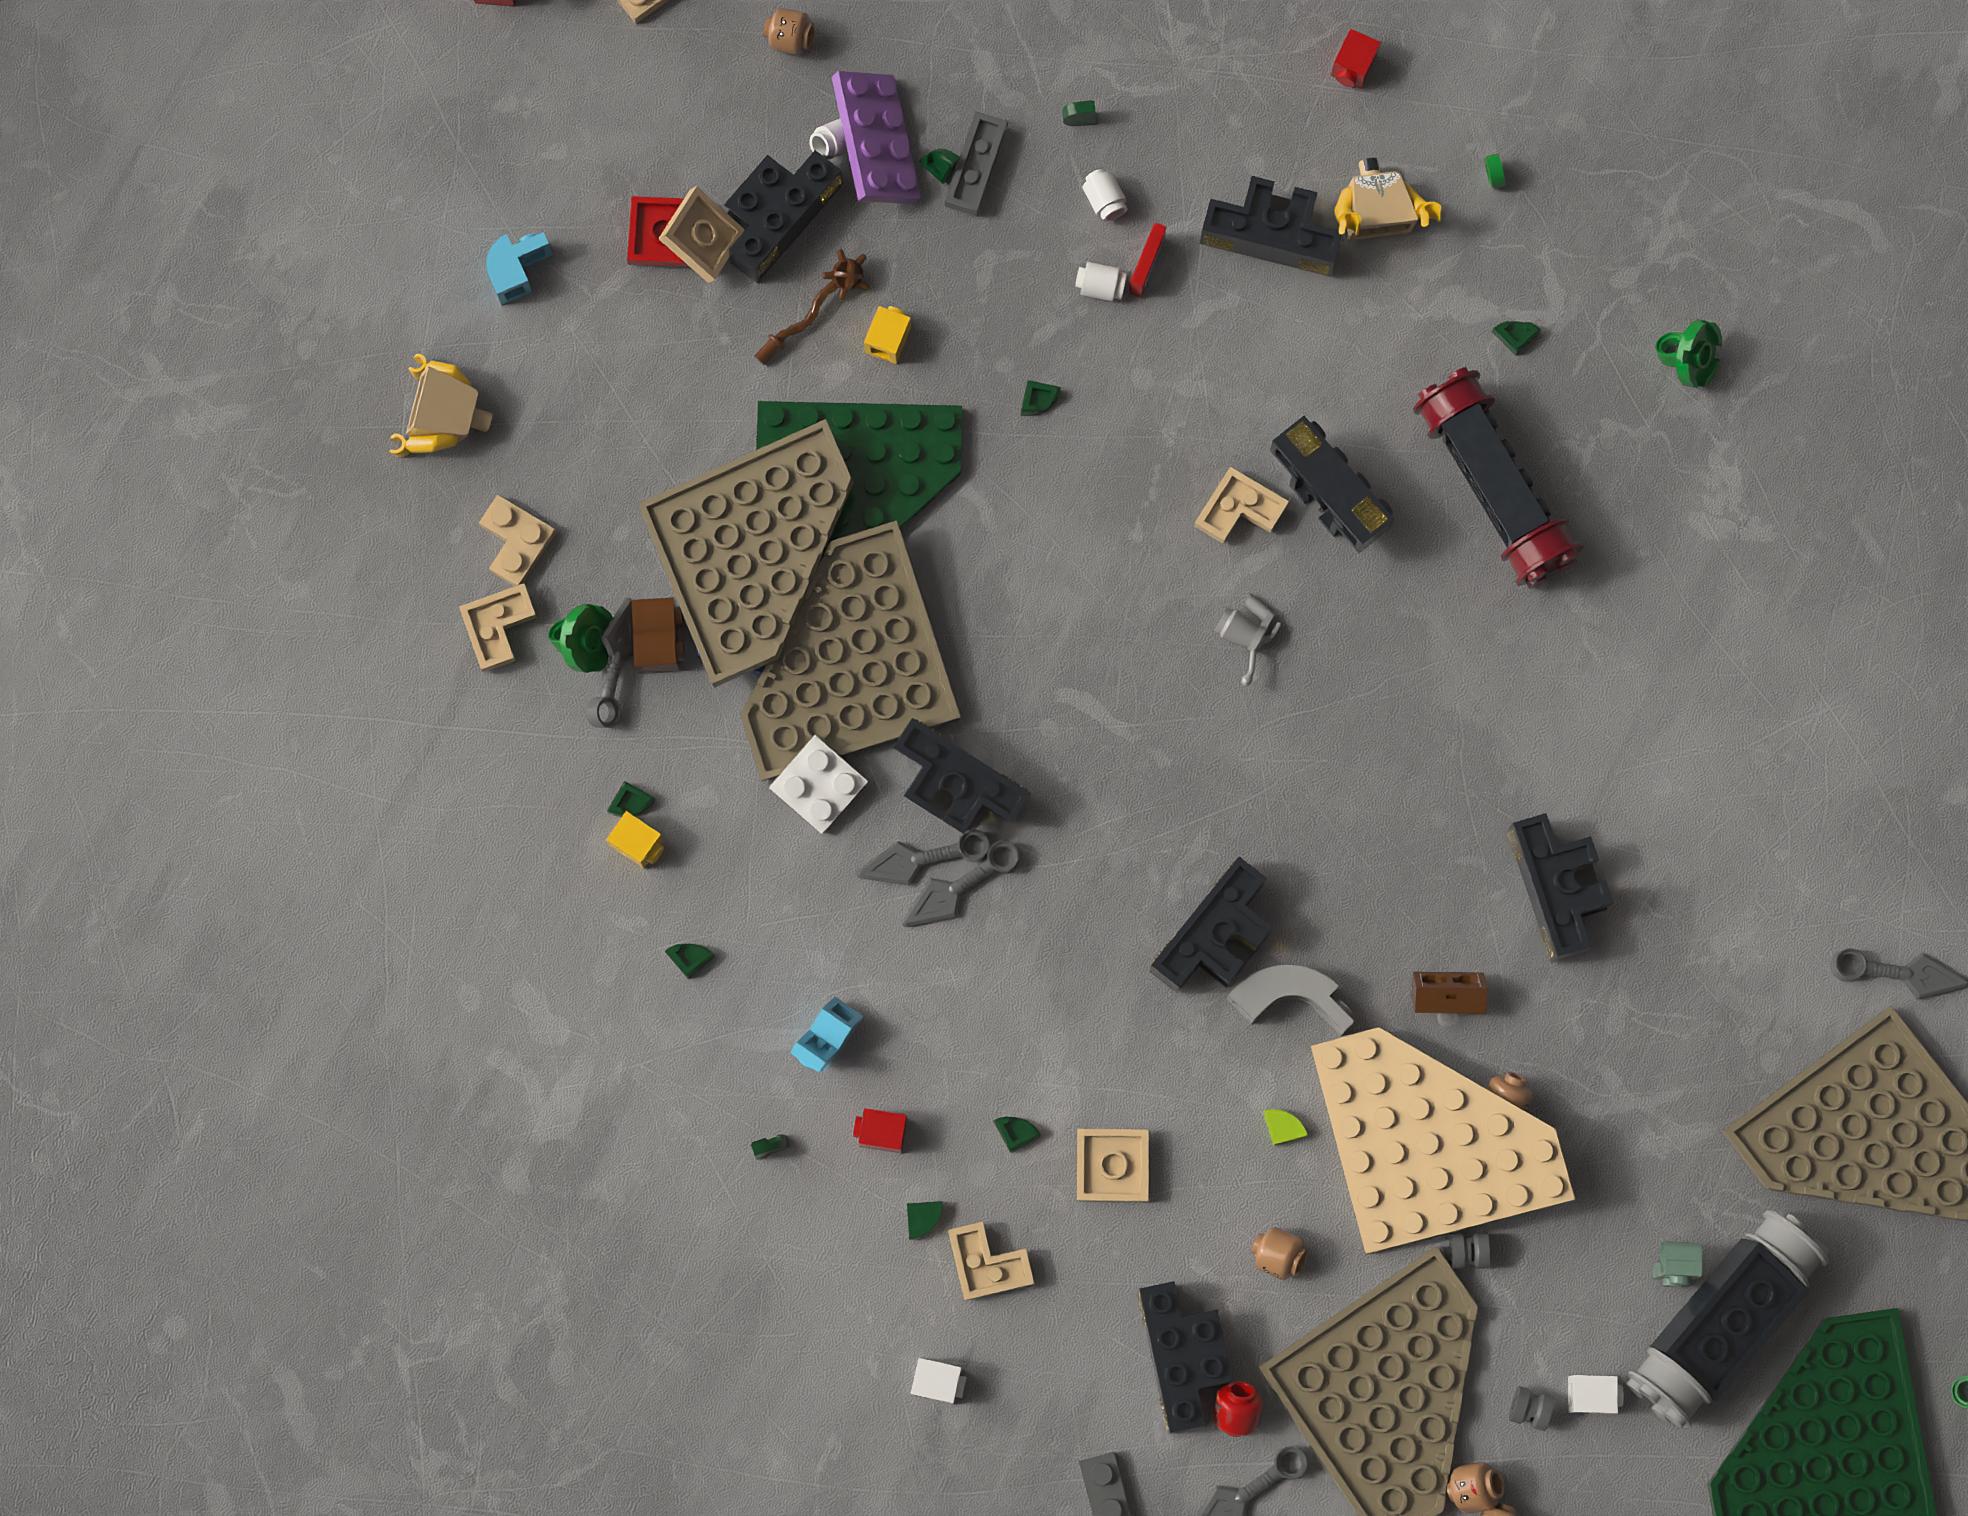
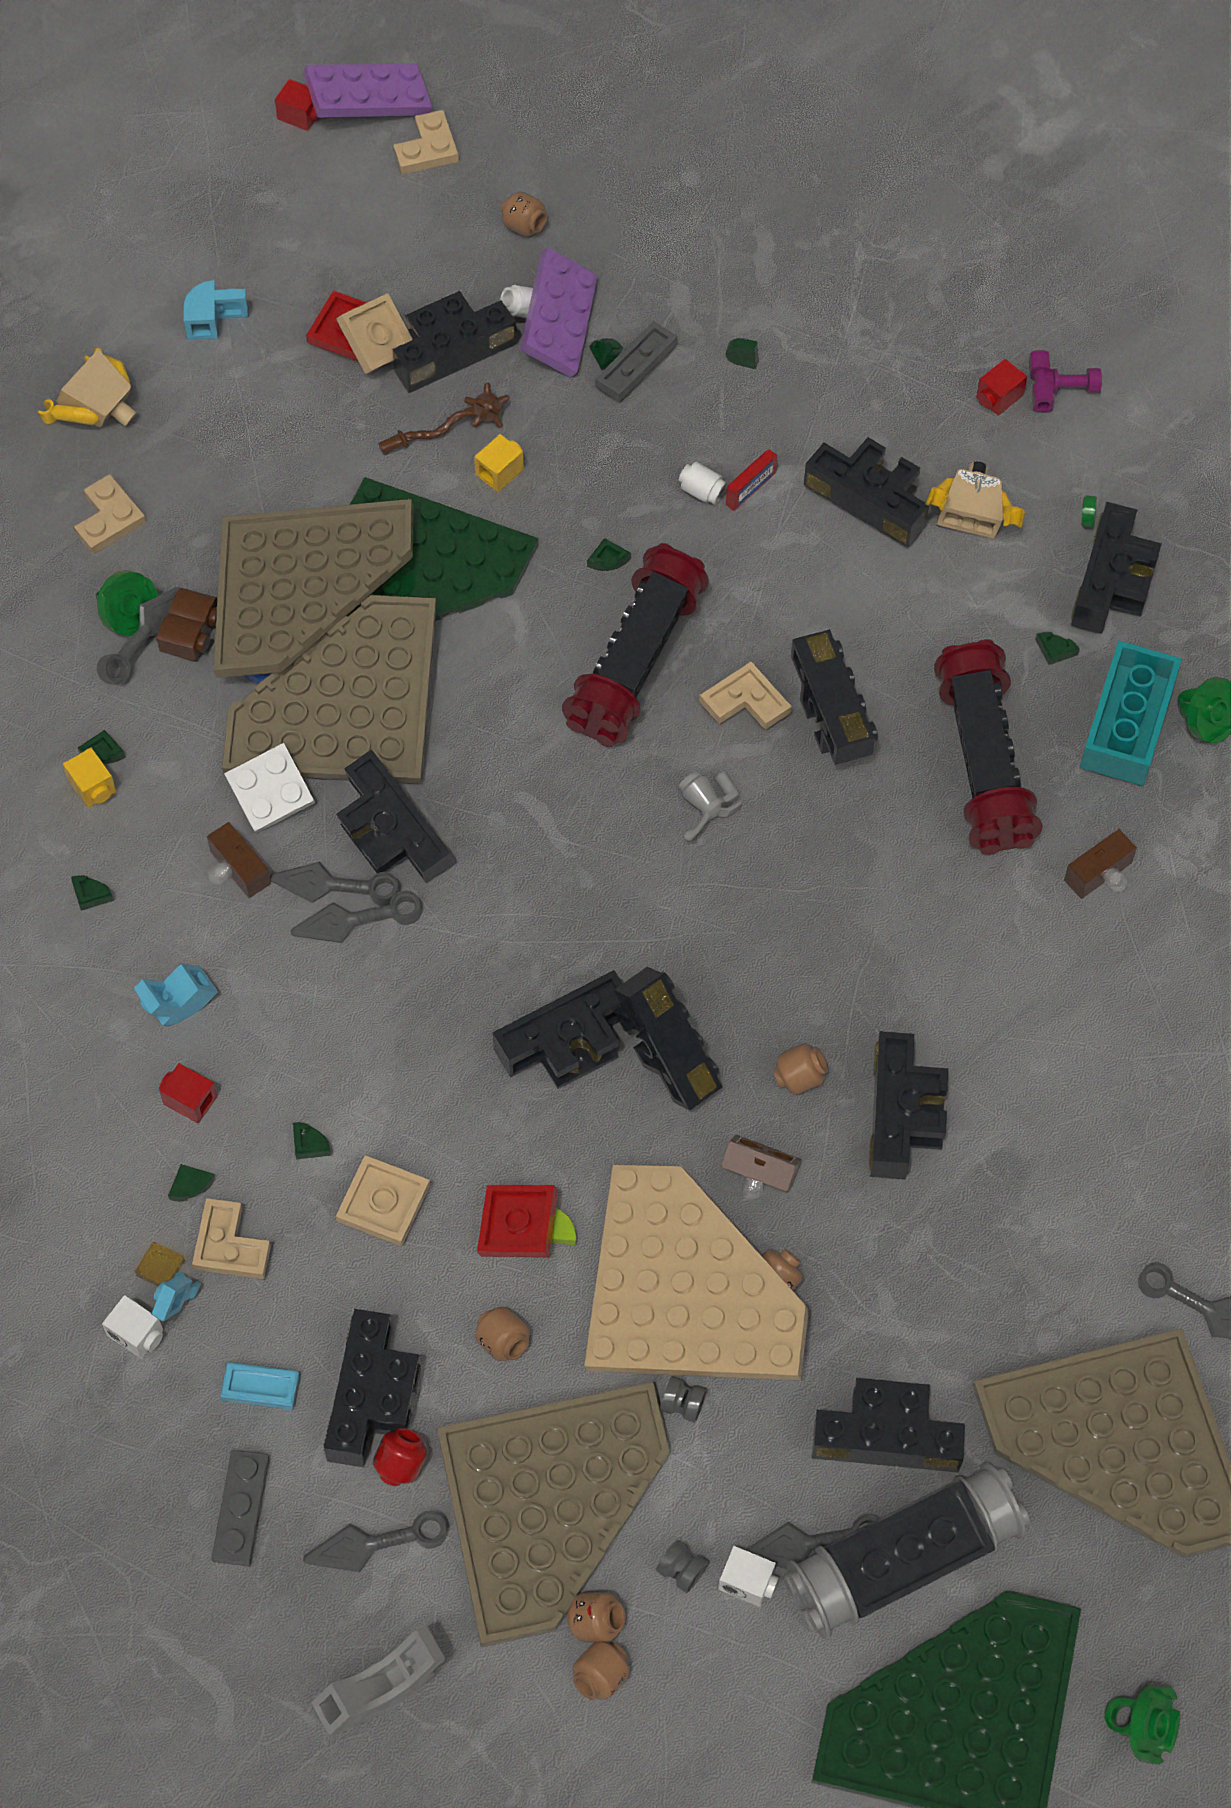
camera: 20 degrees right, 15 degrees down
(487, 623) = (55, 563): tan plate -> none
(769, 1146) = (79, 1072): dark green tile -> none
(819, 874) = (236, 861): none -> reddish brown piece
(931, 1309) = (159, 1264): none -> clear yellow tile
(961, 1337) = (172, 1294): none -> medium azure plate
(1076, 1388) = (260, 1385): none -> medium azure tile
(1105, 195) = (736, 419): white brick -> none
(1110, 560) = (608, 697): none -> brick
(1247, 1138) = (517, 1221): none -> red plate
(1290, 982) = (612, 1101): light grey arch -> none
(1319, 909) = (668, 1040): none -> black piece
(1399, 32) = (1048, 380): none -> magenta bar
(1448, 882) = (801, 1069): none -> medium nougat head
(1546, 232) = (1116, 571): none -> black piece
(1618, 1349) = (793, 1544): none -> dark grey piece
(1619, 386) = (1130, 713): none -> teal brick
(1650, 561) = (1102, 865): none -> reddish brown piece
(1665, 1204) = (889, 1429): none -> black piece
(1678, 1263) = (876, 1481): sand green plate -> none

